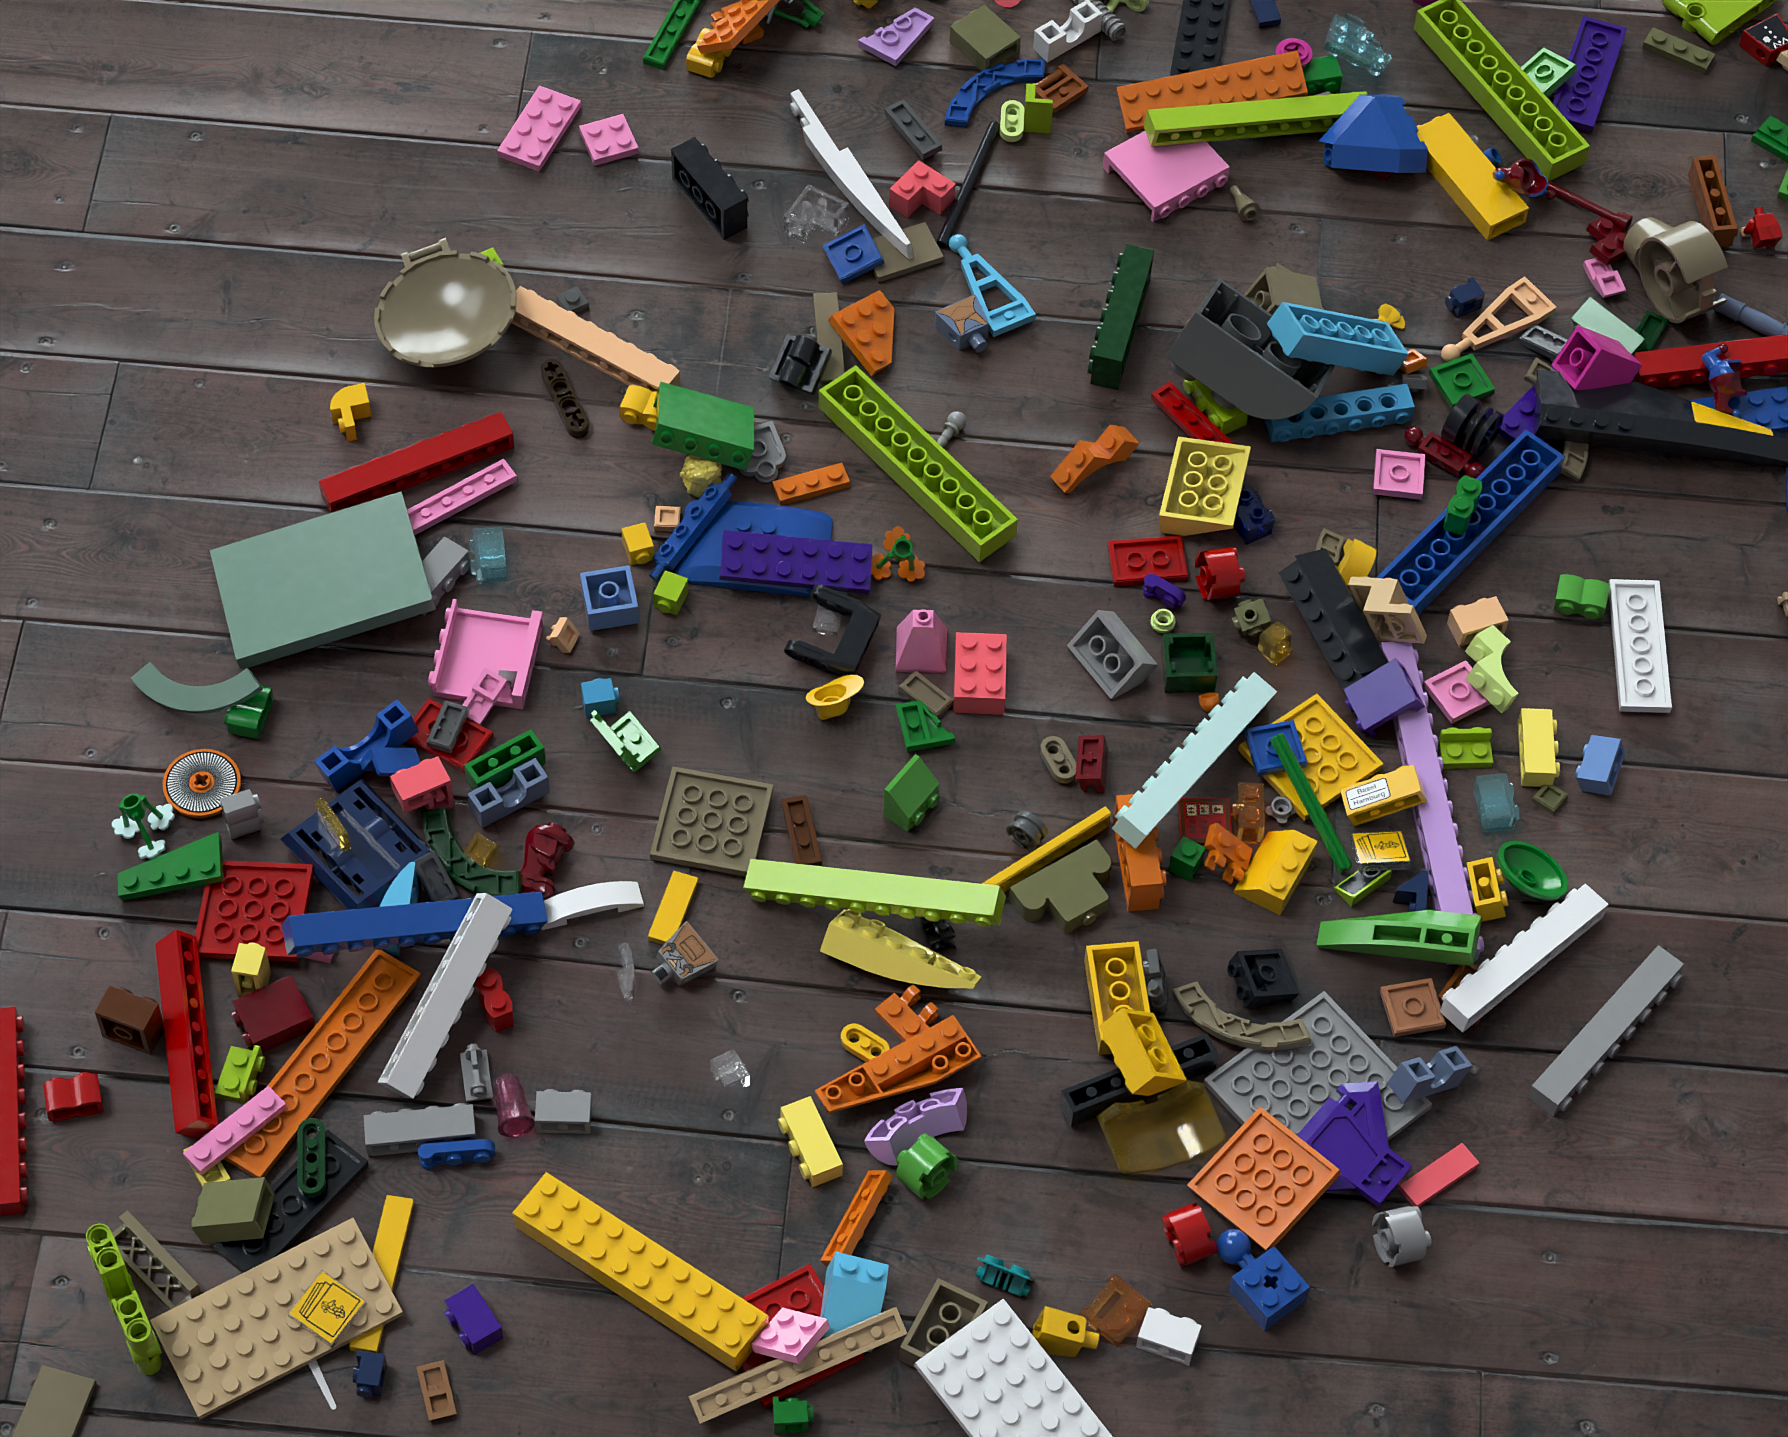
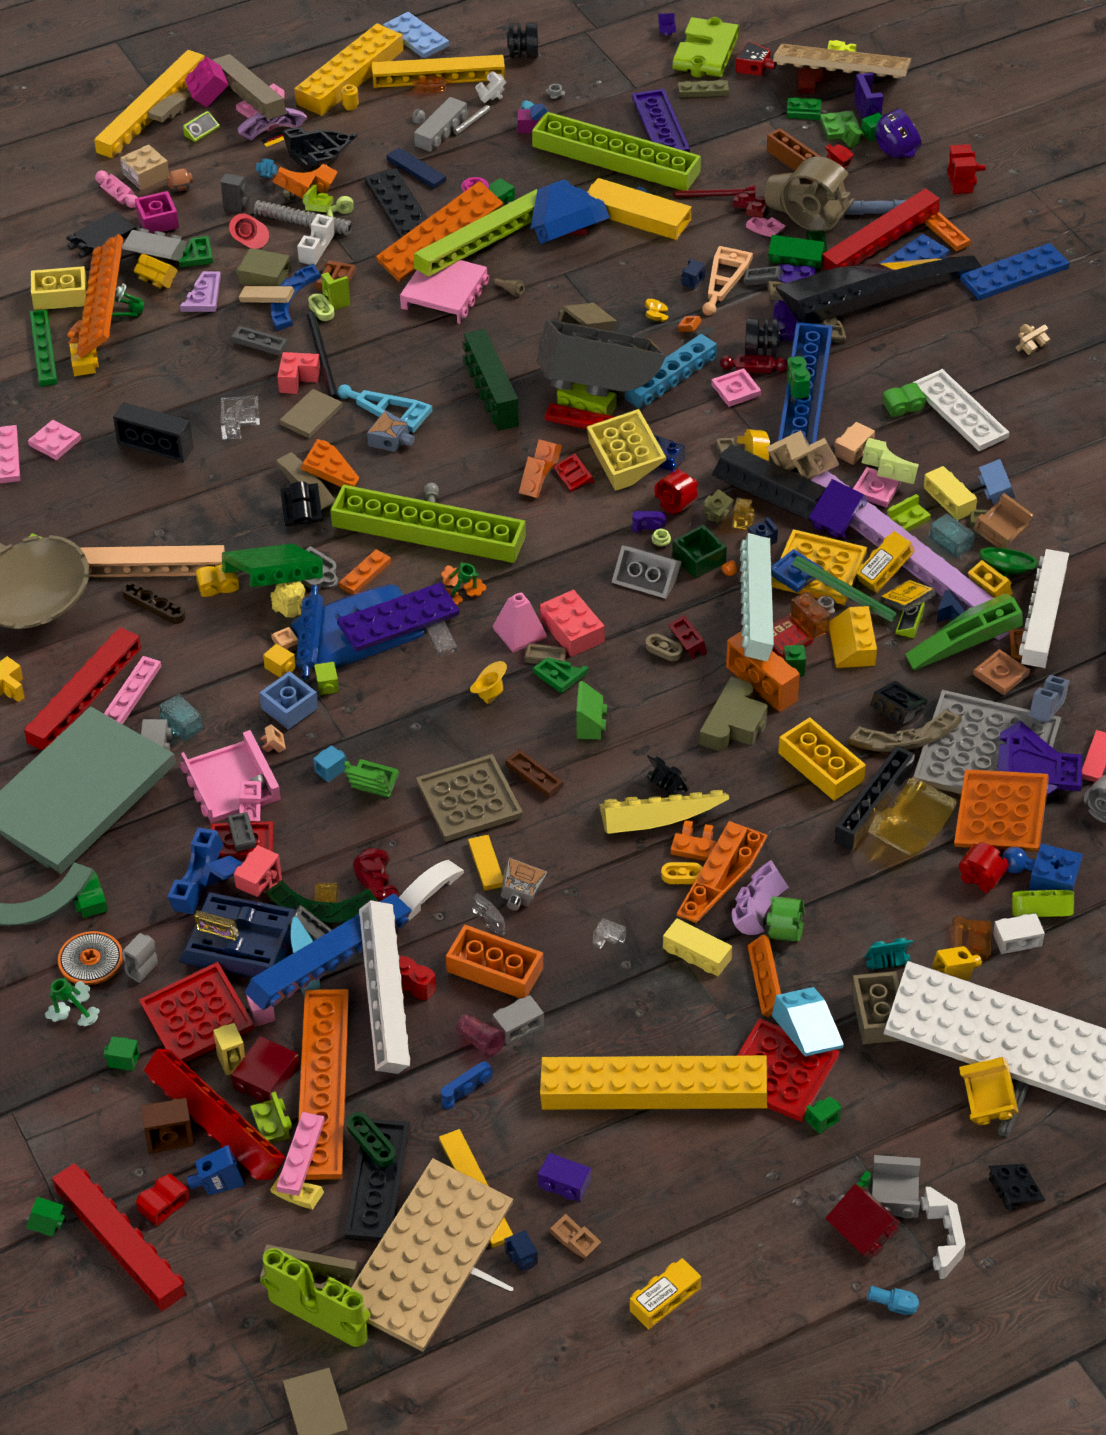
camera: 30 degrees left, 10 degrees down
(142, 1101) = (217, 1172): none -> blue torso
(152, 910) = (122, 1053): none -> green brick
(180, 869) = (118, 1019): green wing -> none
(233, 1210) = (342, 1202): olive brick -> none
(327, 1308) = (462, 1223): yellow tile -> none
(410, 1128) = (425, 1085): light grey brick -> none
(476, 1074) = (437, 1030): light grey hinge -> none
(499, 763) = (301, 833): green brick -> none
(526, 786) = (313, 859): sand blue arch -> none
(573, 300) = (110, 541): dark grey plate -> none
(586, 1032) = (494, 962): none -> orange brick
(781, 1373) = (806, 1078): tan plate -> none
(790, 1335) = (789, 1061): bright pink plate -> none
(848, 176) = (241, 383): white slope -> none
(853, 254) = (281, 428): blue tile -> none
(853, 642) = (474, 643): black connector -> none
(875, 892) = (620, 774): lime brick -> none
(963, 73) = (266, 294): none -> tan tile
(1027, 830) = (680, 695): dark grey wheel -> none
(1052, 850) = (703, 704): yellow tile -> none
(1130, 493) = (575, 479): none -> red piece
(1138, 557) = (617, 510): red tile -> none
(1141, 1052) = (868, 775): yellow slope -> none
(1157, 985) = (836, 730): dark grey plate -> none
(1223, 1317) = (1043, 903): none -> lime beam
(1228, 849) = (817, 641): orange plate -> none
(1280, 678) = (765, 529): none -> dark blue brick
(1337, 339) = (643, 323): medium azure brick -> none
(1354, 43) = (509, 168): clear light blue plate -> none
(1461, 378) = (729, 319): green plate -> none
(1524, 179) = (677, 191): dark red piece -> none
(1548, 70) = (639, 127): bright green plate -> none
(1568, 820) = (1003, 522): none -> medium nougat panel
(1595, 361) = (807, 265): dark pink slope -> none
(1724, 379) = (889, 241): dark red piece -> none

